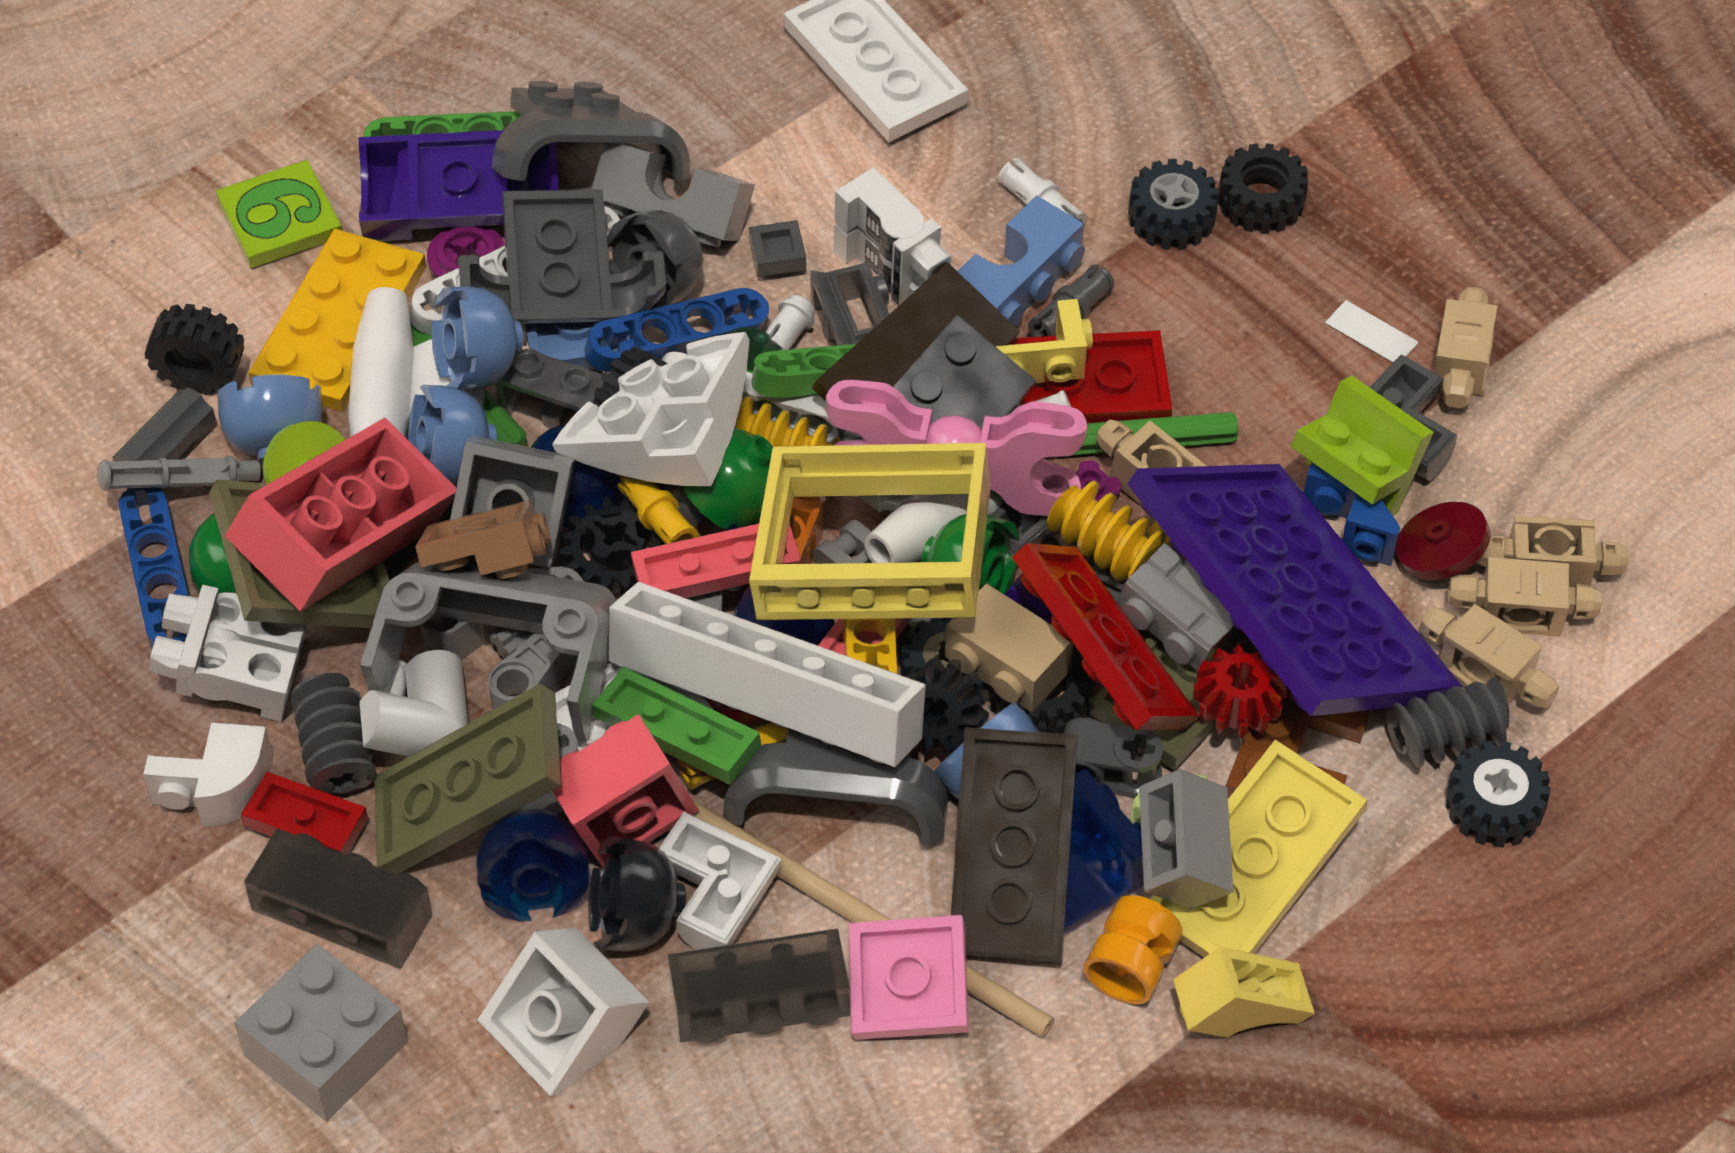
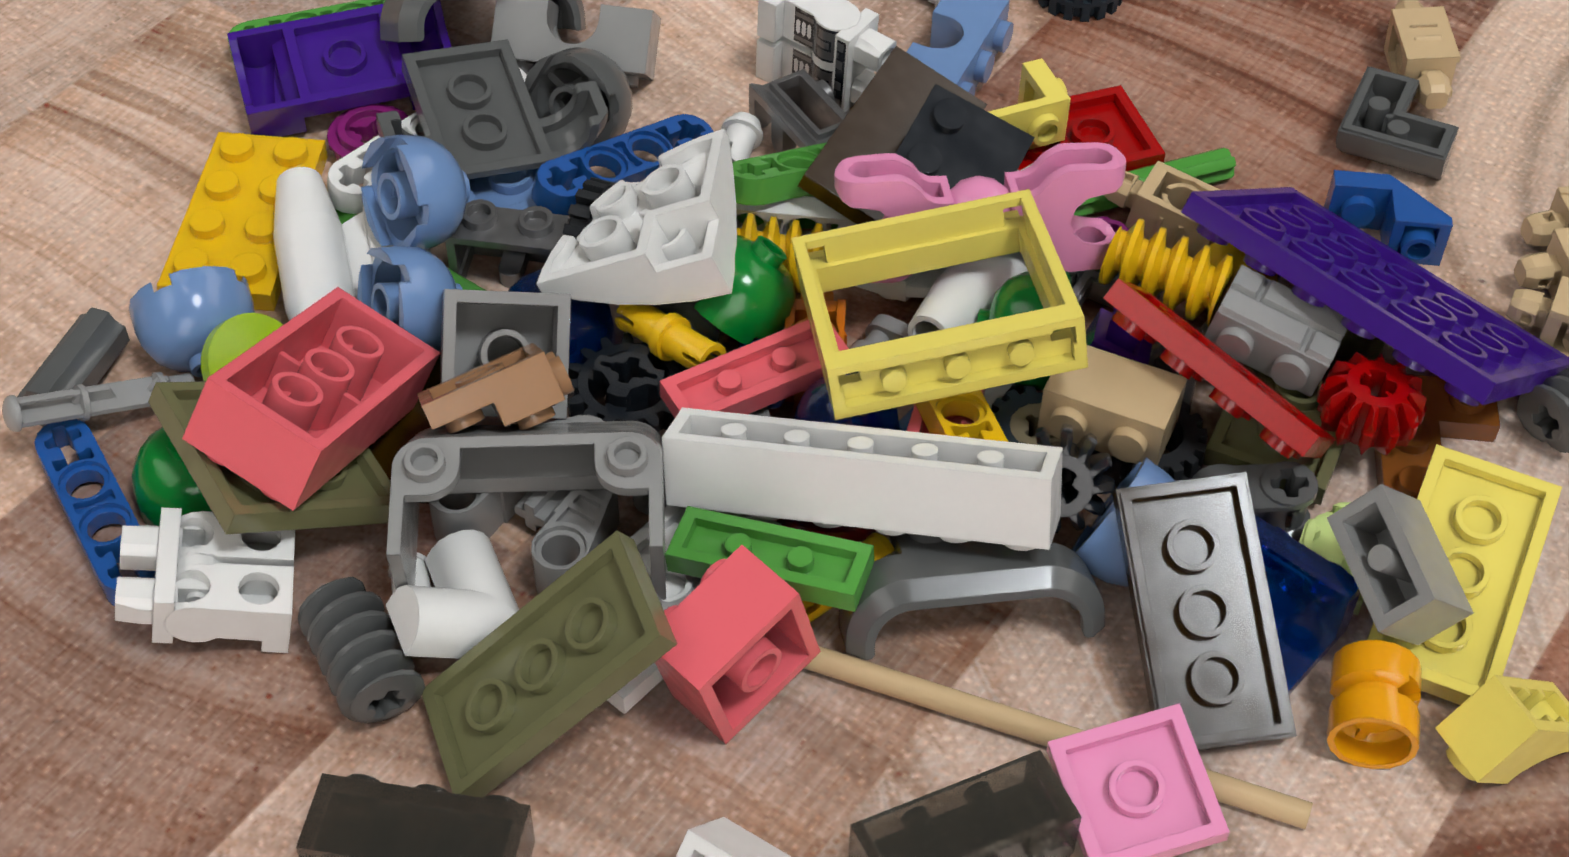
camera: 15 degrees left, 5 degrees down
(194, 348) = (92, 244): black tyre -> none
(218, 784) = (233, 739): white brick -> none
(278, 213) = (151, 129): lime tile -> none
(304, 810) = (343, 747): red plate -> none
(531, 864) = (648, 752): clear blue cylinder -> none
(633, 895) = (777, 764): black cylinder -> none
(729, 878) = (883, 716): white brick -> none
(777, 248) = (700, 76): dark grey plate -> none
(1086, 289) = (1009, 77): dark grey pin -> none
(1365, 444) = (1384, 140): lime bracket -> none
(1371, 331) = (1317, 60): white sticker -> none
(1443, 540) = (1492, 228): dark red piece -> none

